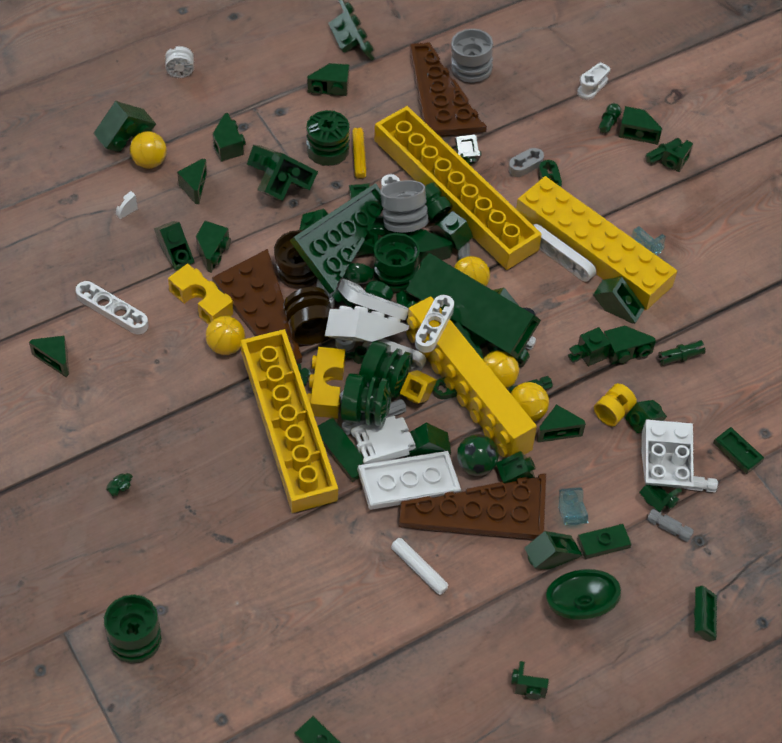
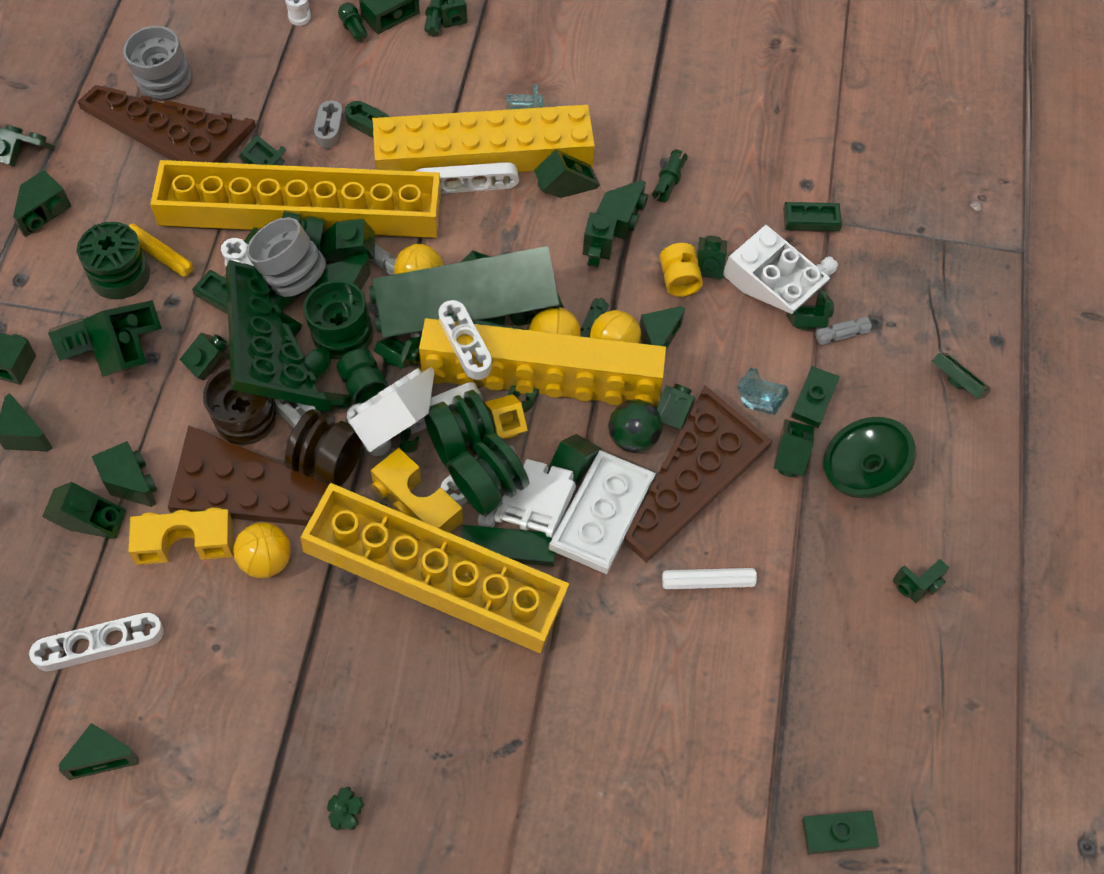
camera: 50 degrees left, 5 degrees up
(357, 295) = (361, 382): white beam -> none

